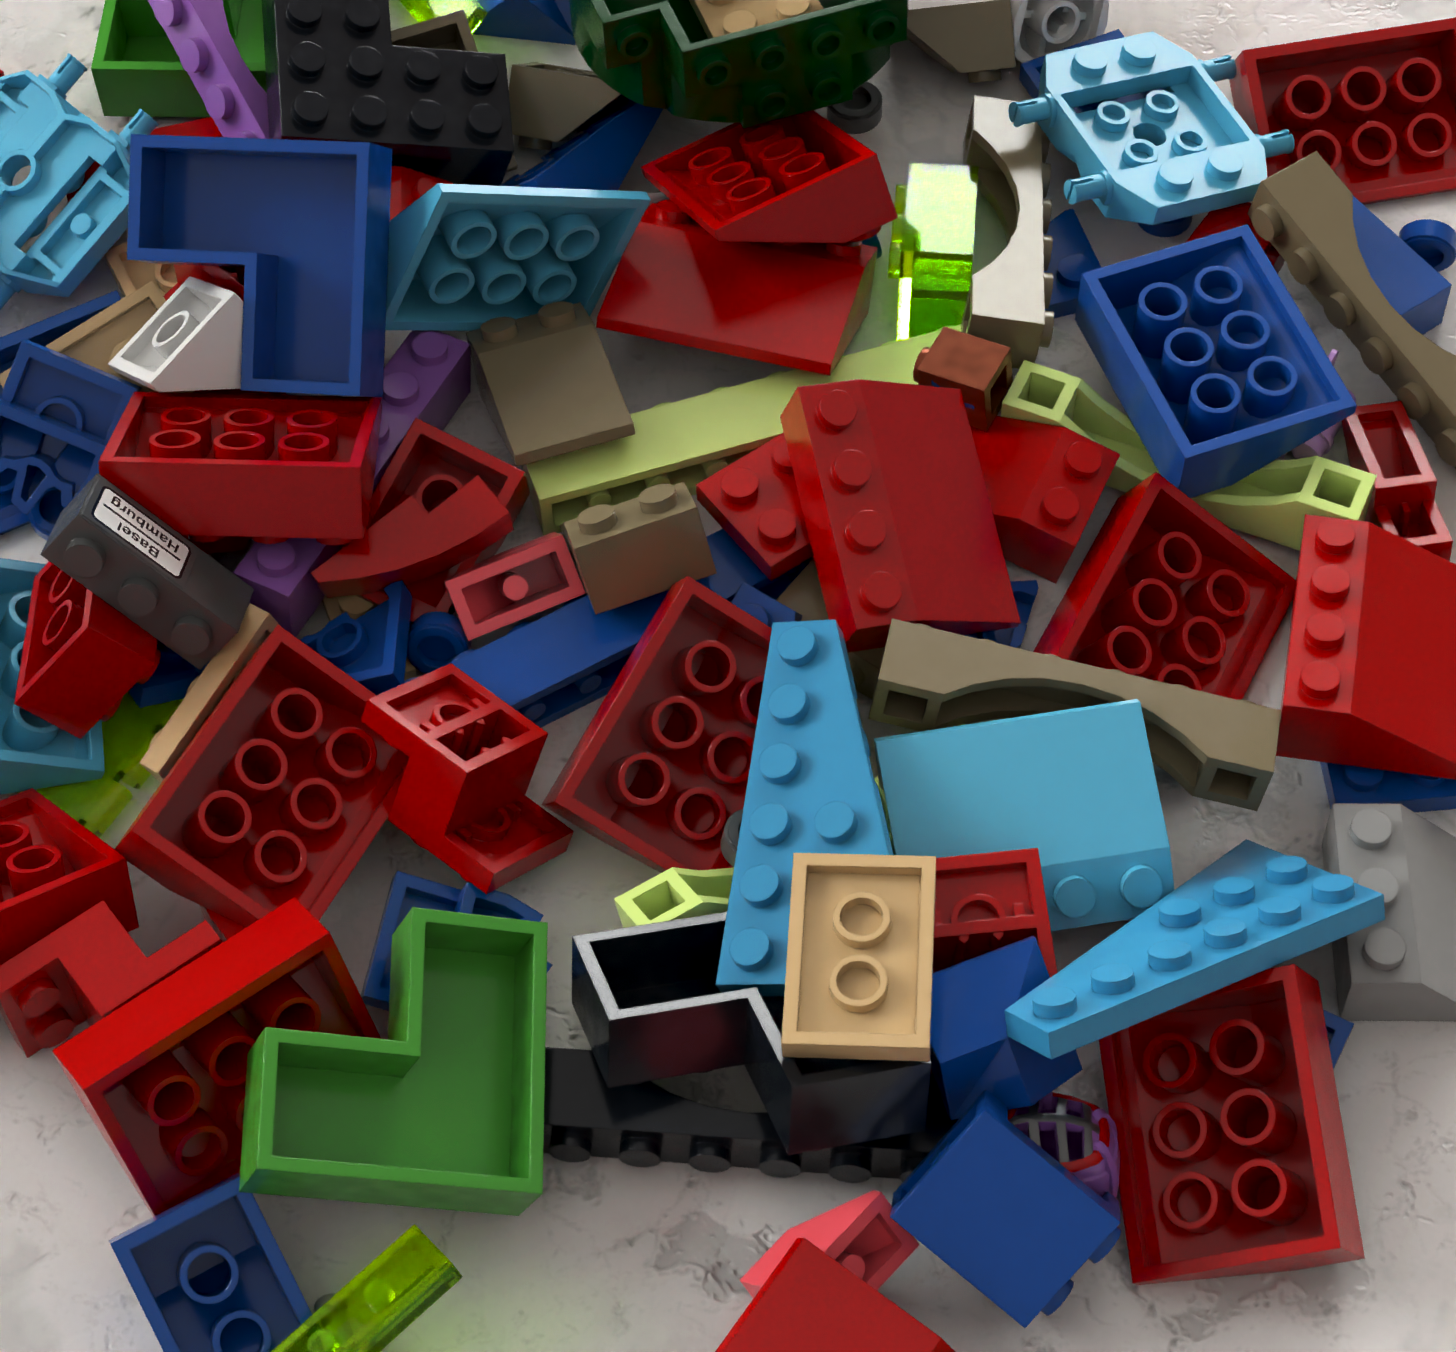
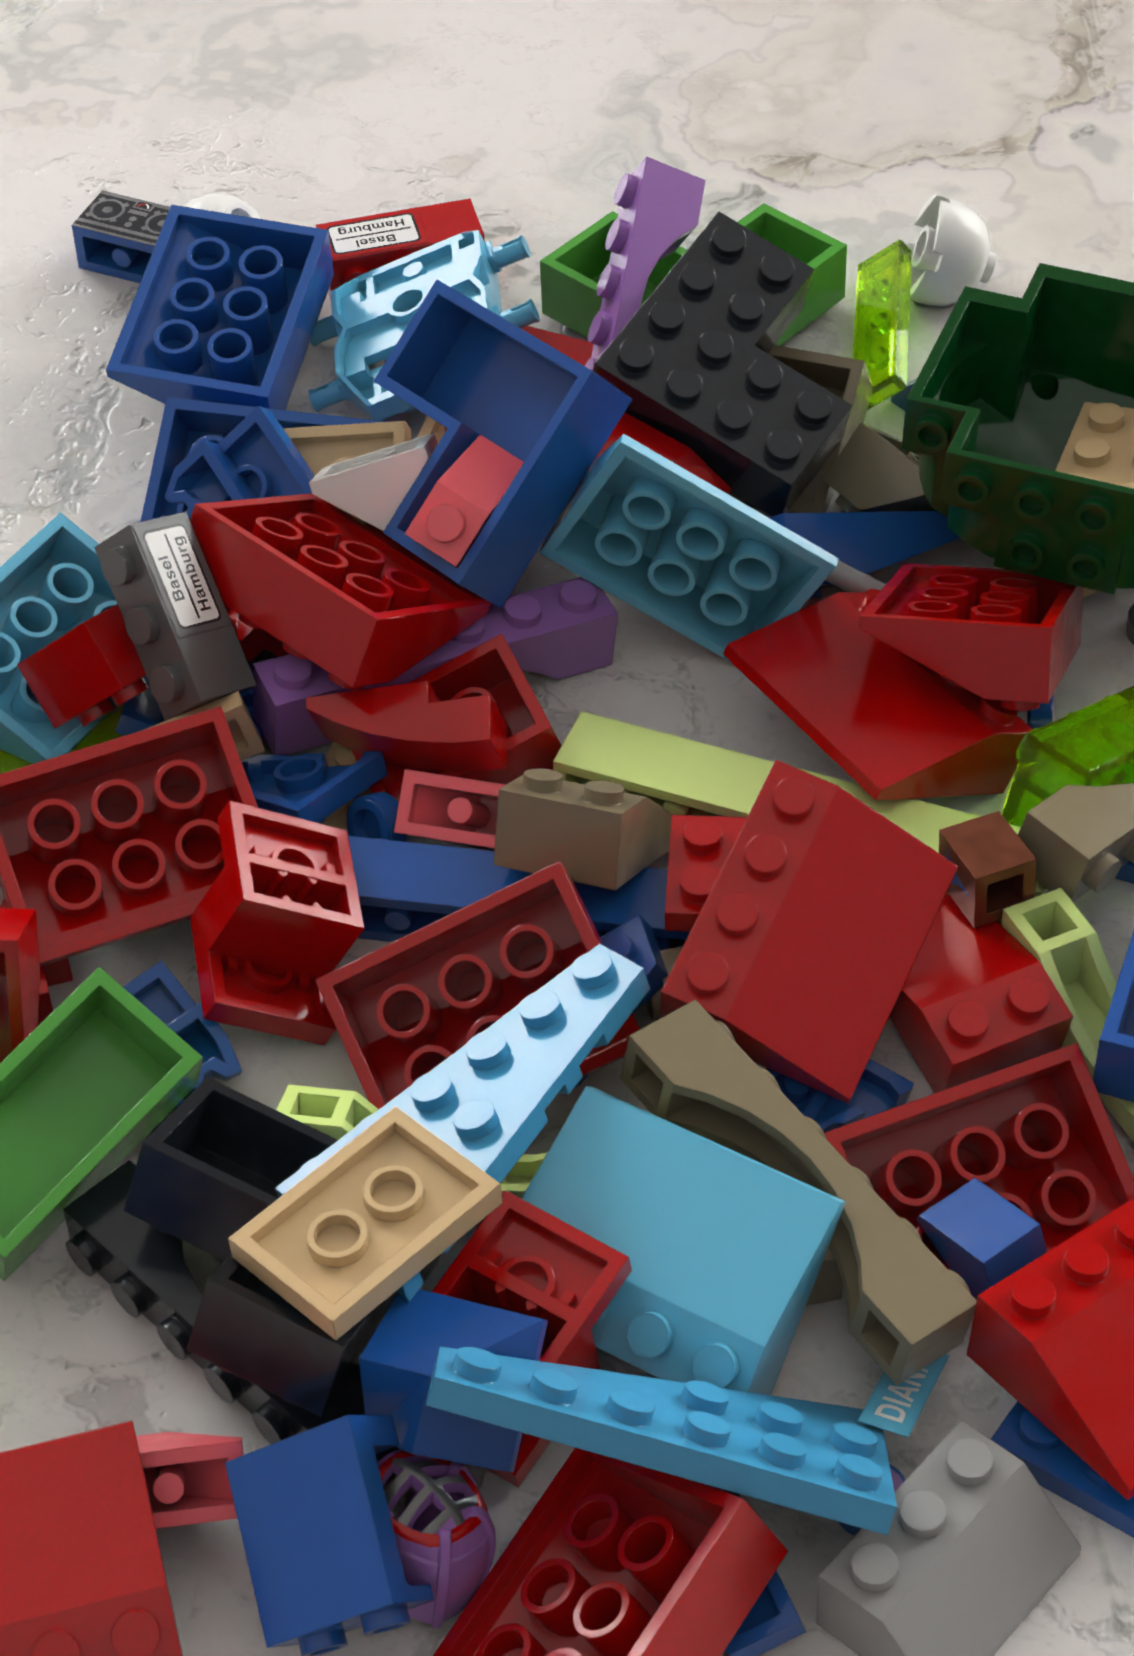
camera: 40 degrees right, 10 degrees down
(308, 320) = (464, 500): none -> coral slope
(548, 382) = (650, 677): dark tan slope -> none
(1218, 660) = (982, 1235): none -> blue slope
(1262, 828) = (899, 1406): none -> medium azure sticker

